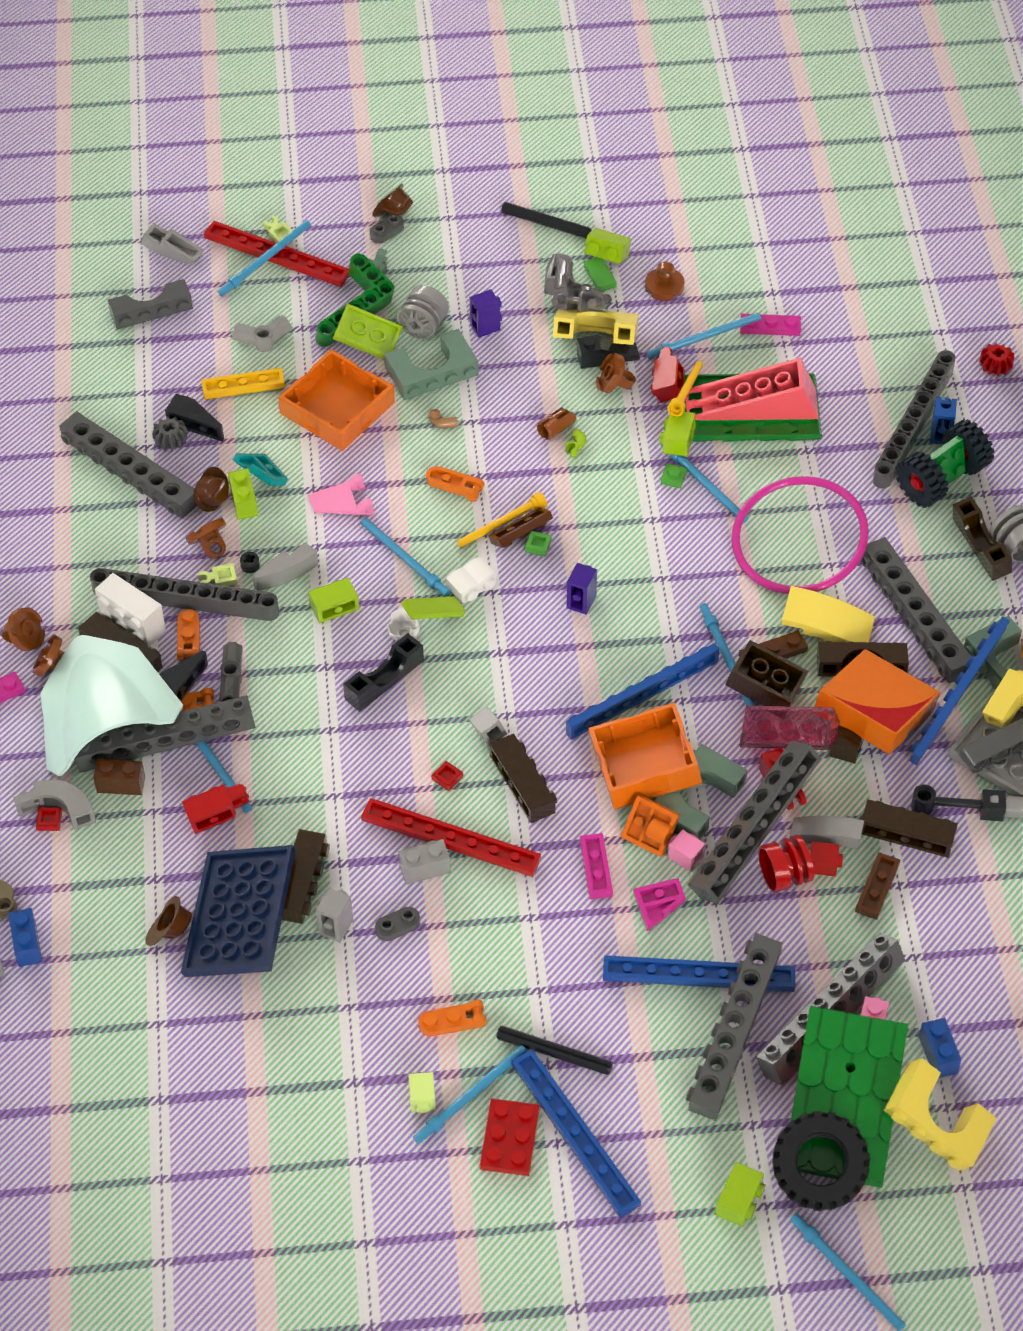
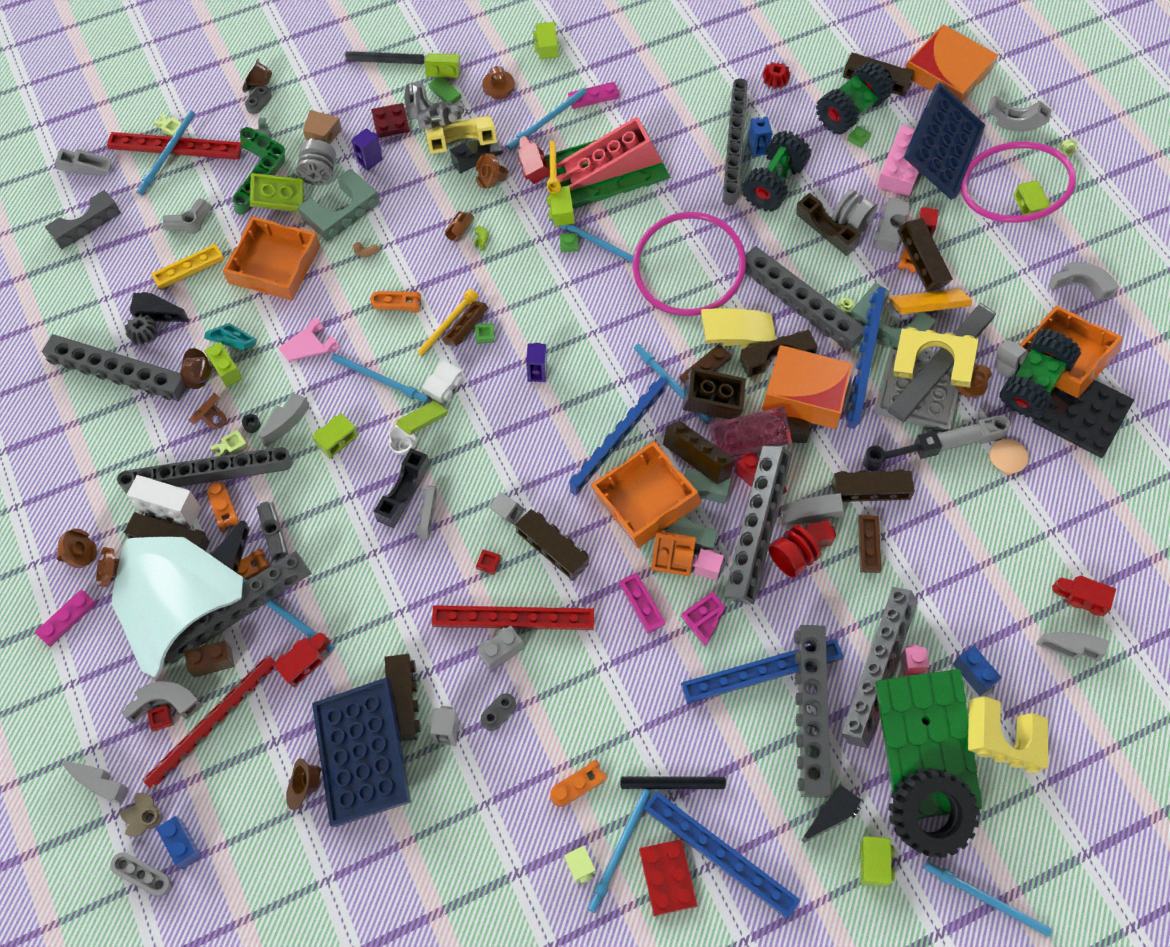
camera: 20 degrees left, 10 degrees up
(89, 840) = (203, 728): none -> red plate
(401, 706) = (427, 512): none -> light grey plate
(445, 276) = (321, 127): none -> medium nougat torso
(524, 290) = (390, 120): none -> dark red plate
(714, 1134) = (836, 811): none -> black slope
(722, 731) = (698, 452): none -> dark brown brick
(740, 249) = (546, 40): none -> lime brick
(962, 631) = (847, 309): none -> yellowish green plate

